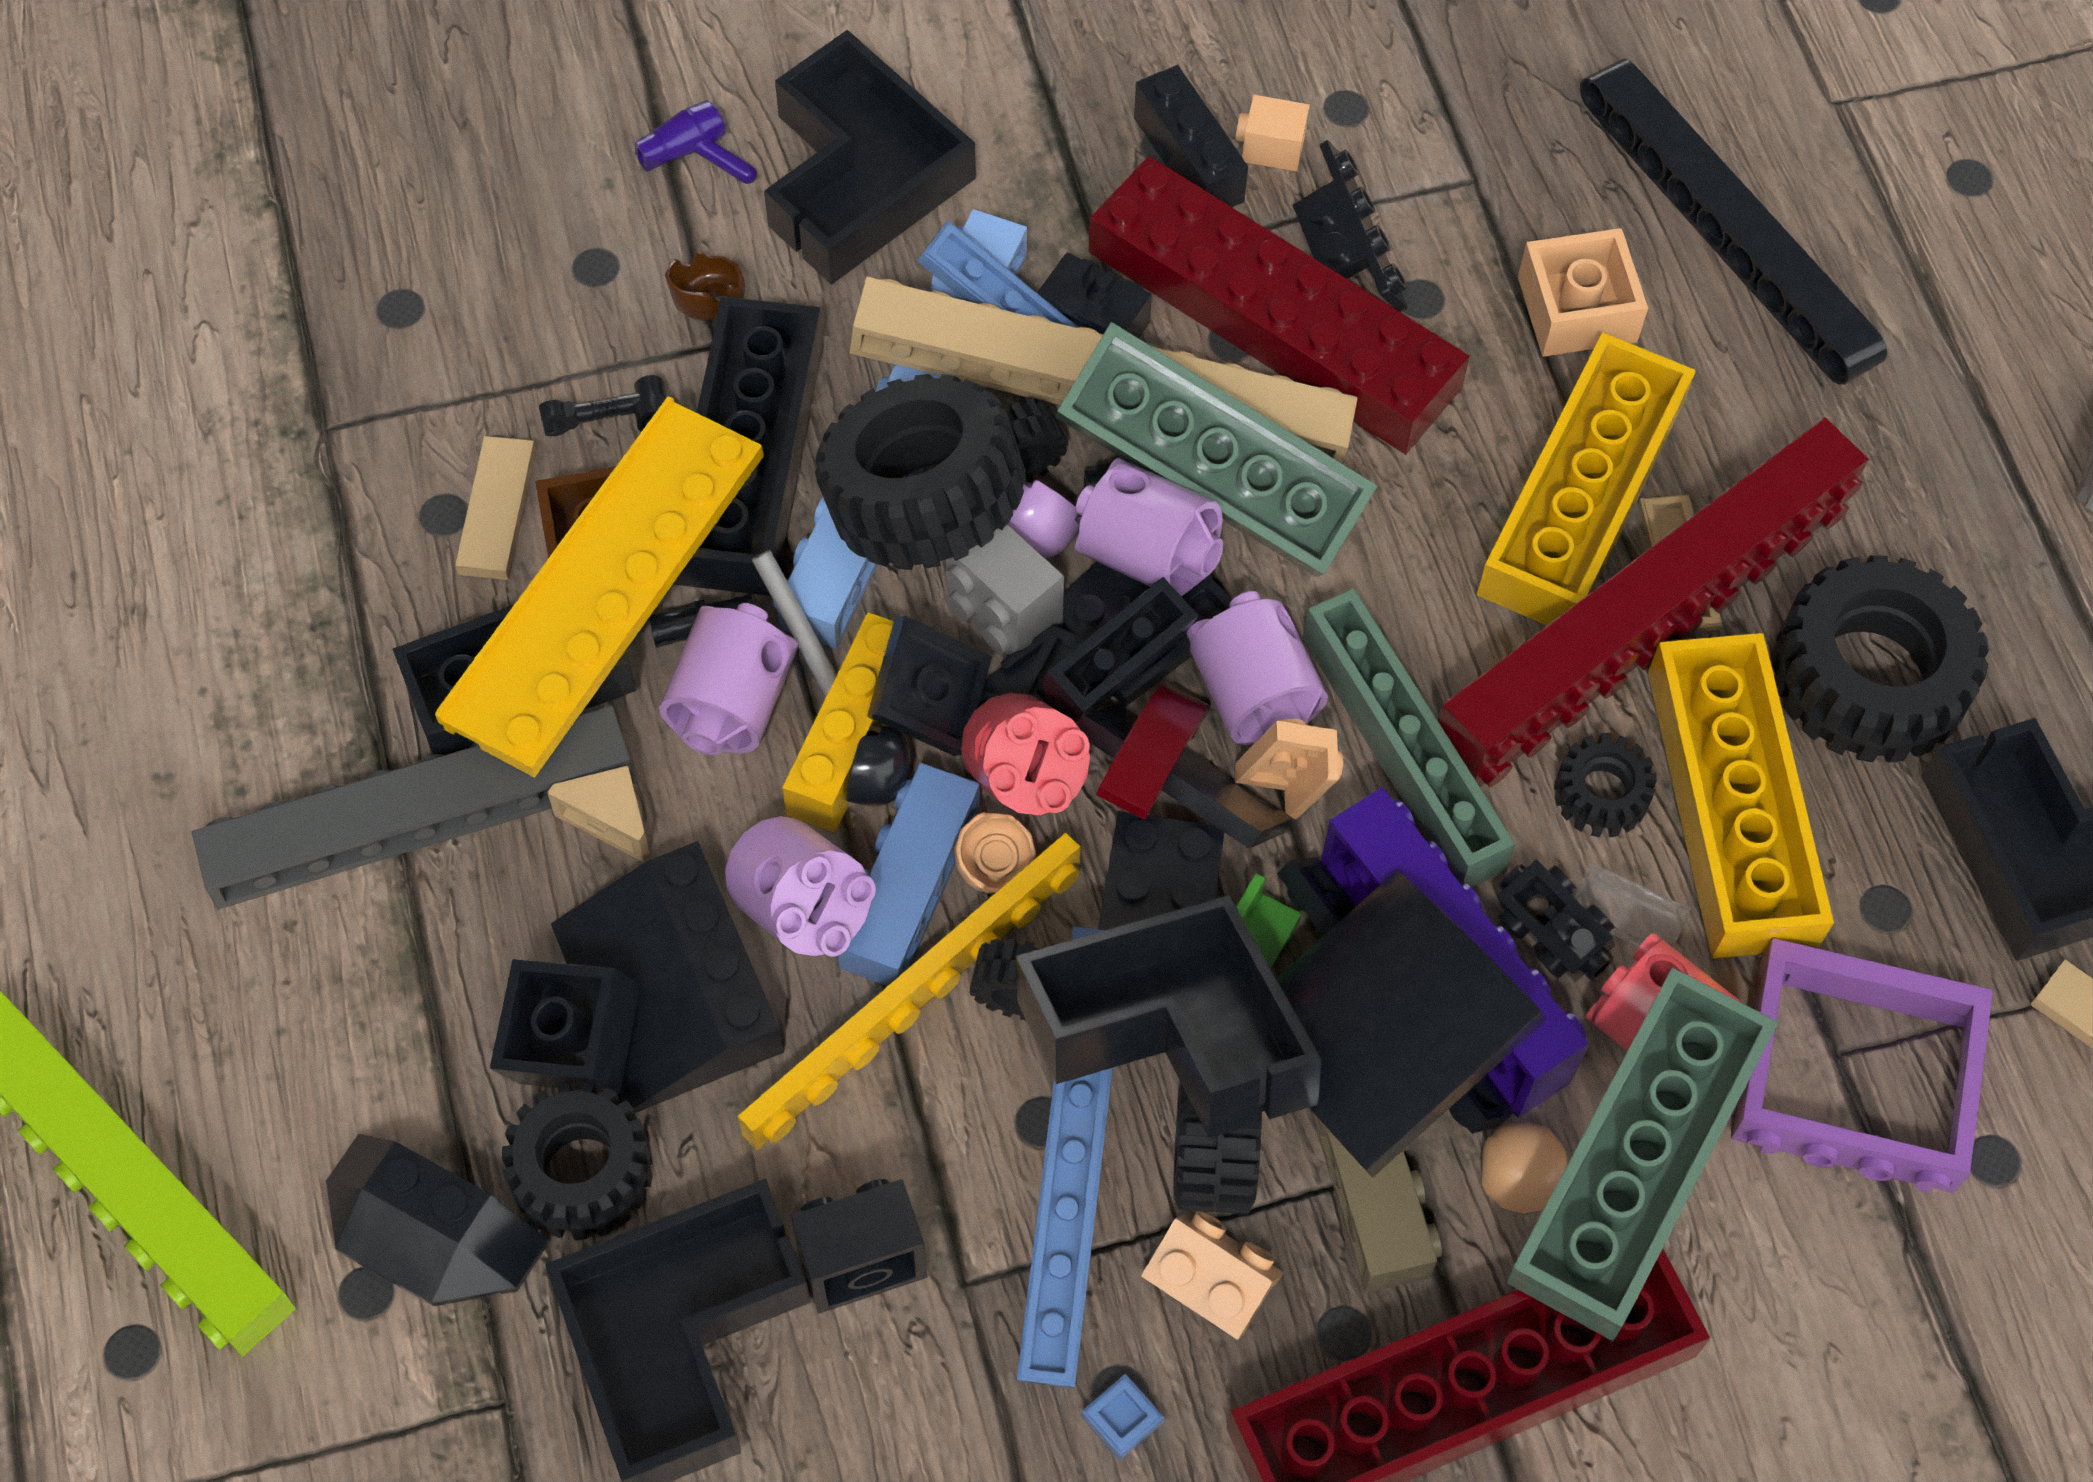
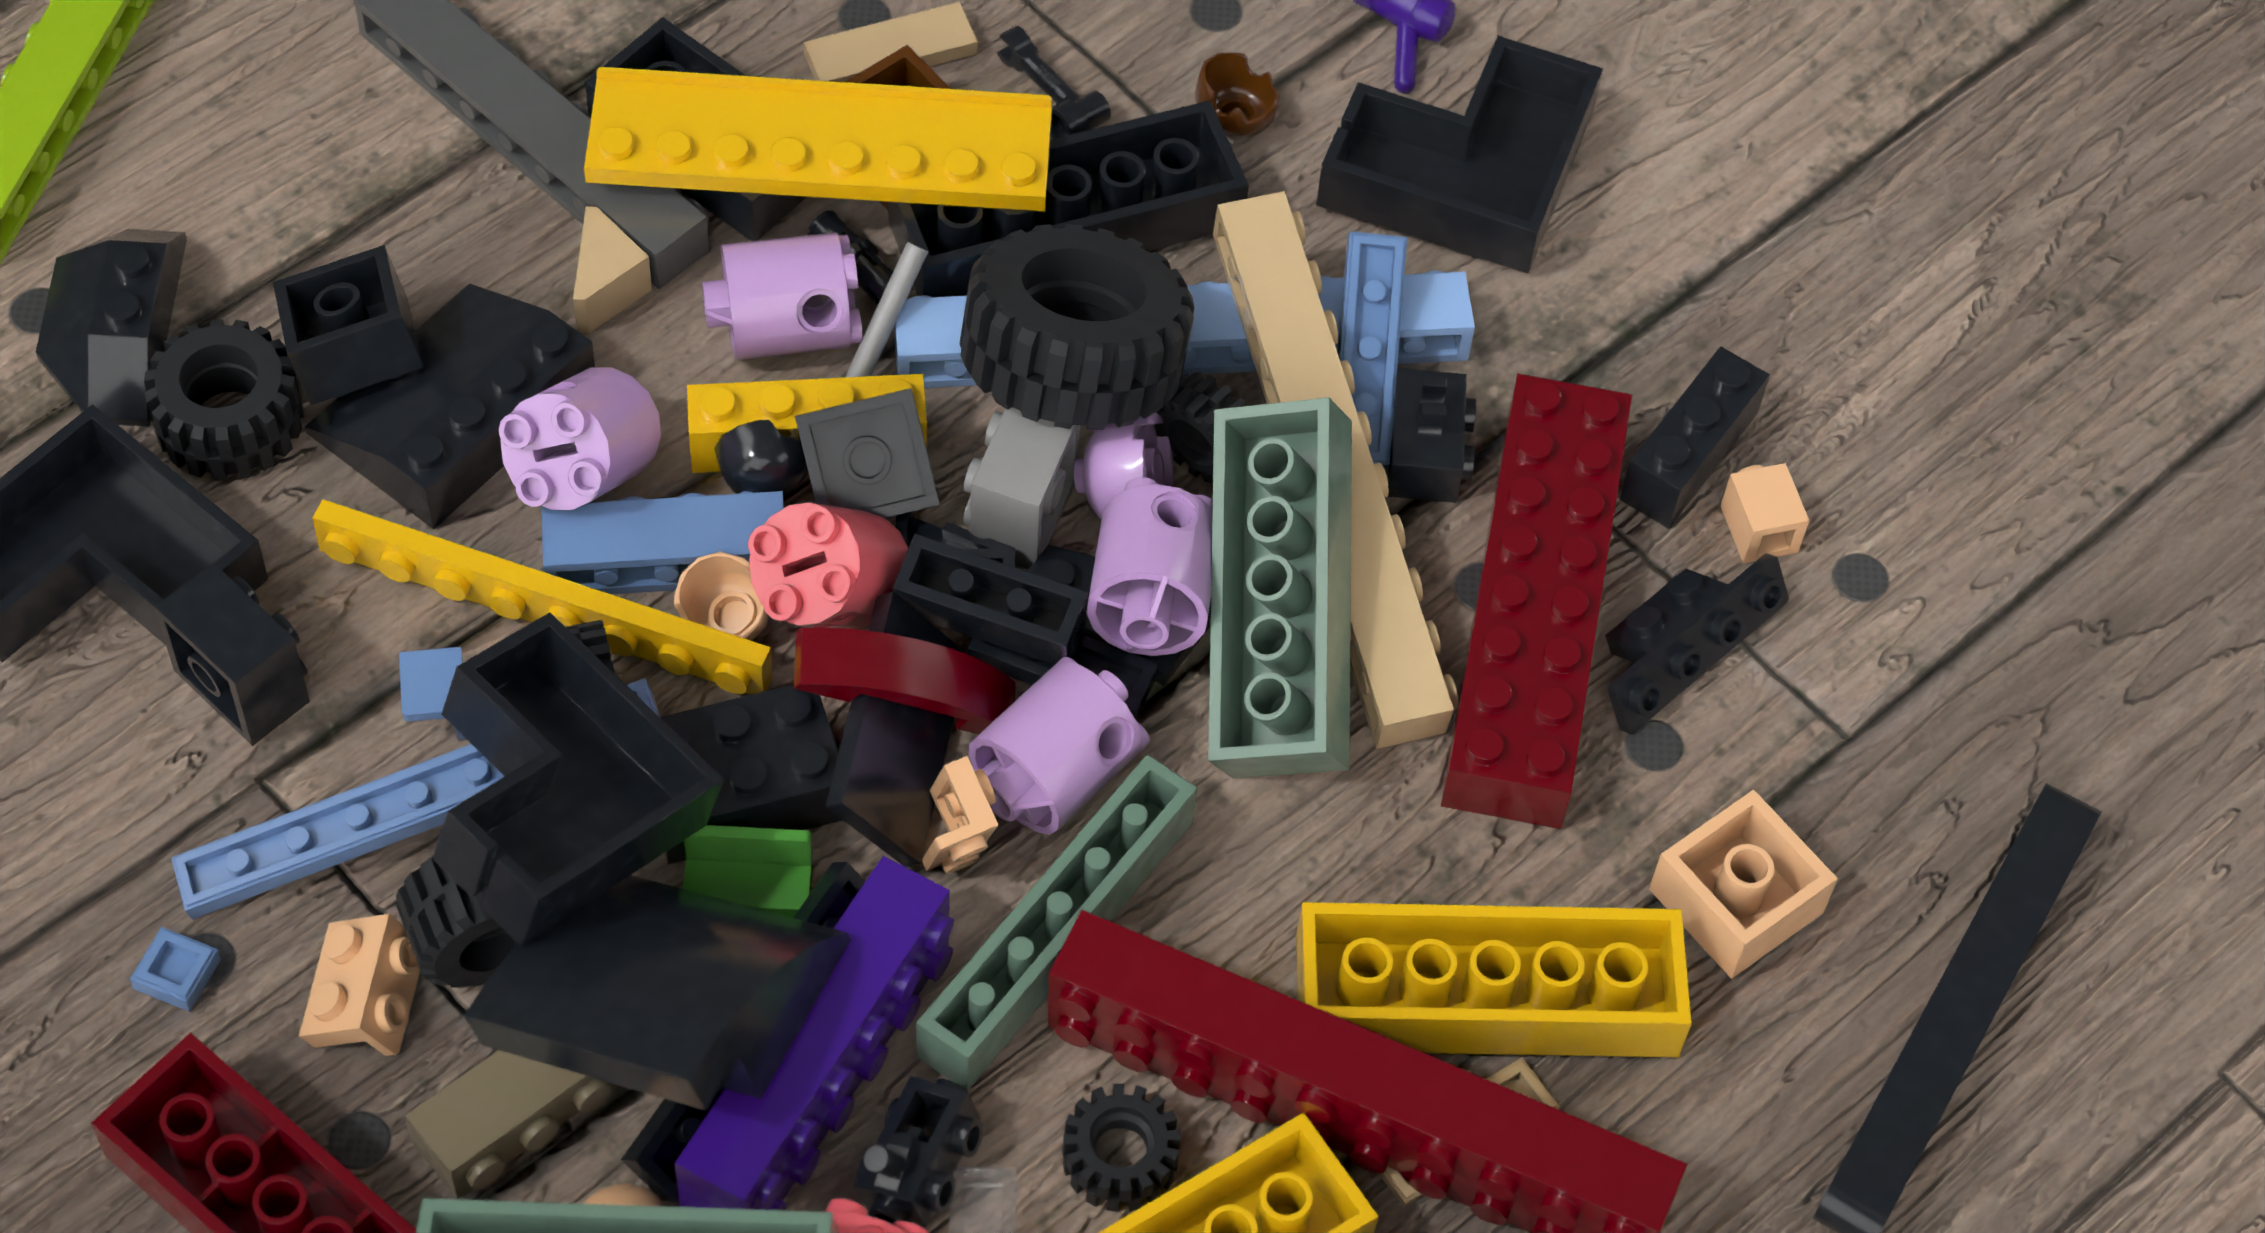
camera: 60 degrees right, 5 degrees down
(965, 1103) = (426, 682): none -> medium blue panel

